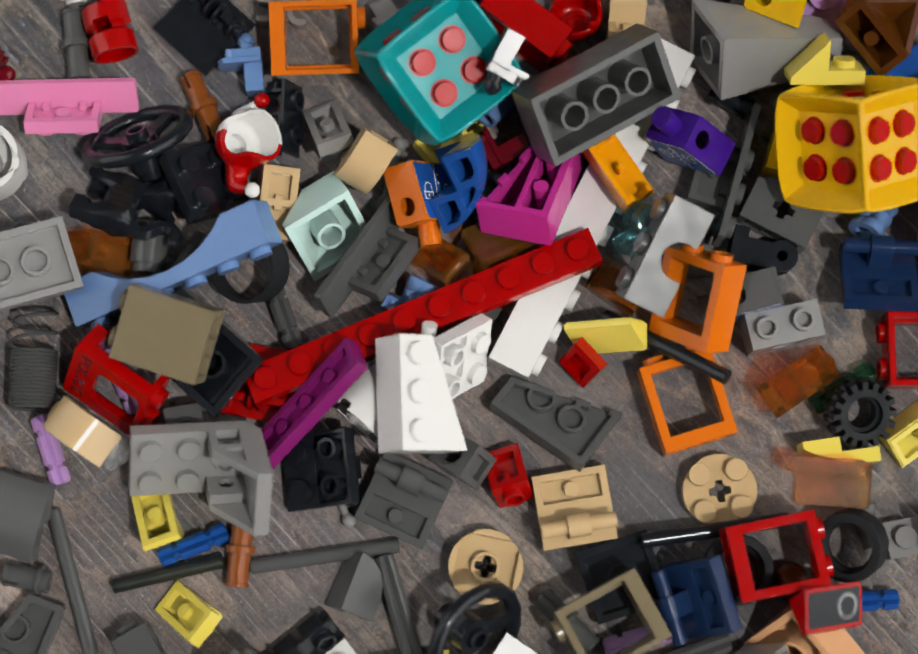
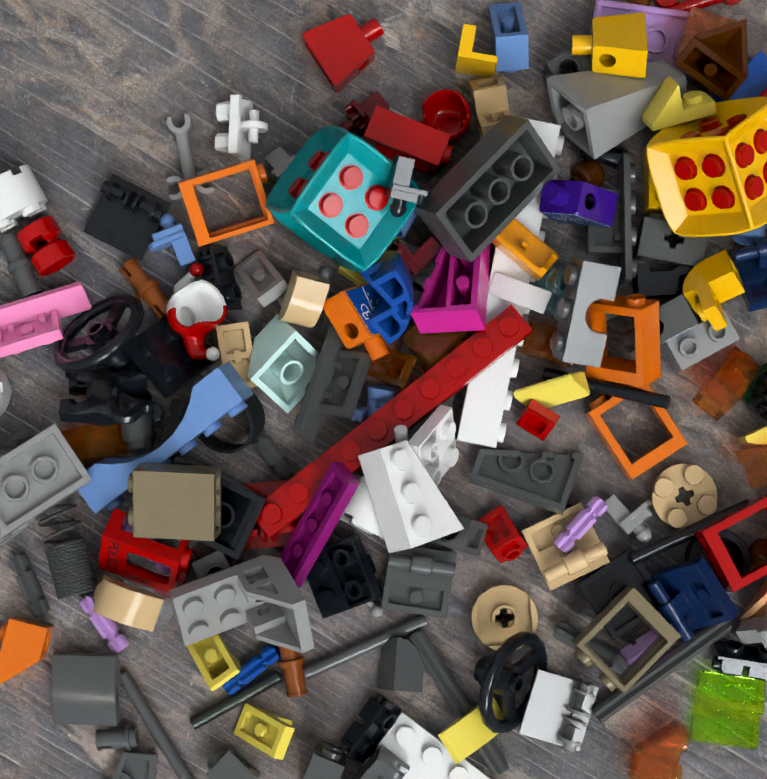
camera: 15 degrees left, 5 degrees up
(597, 486) = (580, 524): none -> lavender axle
(600, 218) = (519, 292): none -> white sticker
(652, 501) = (630, 522): none -> light grey piece
(714, 114) = (588, 172): none -> reddish brown piece
(809, 268) = (710, 285): none -> yellow brick

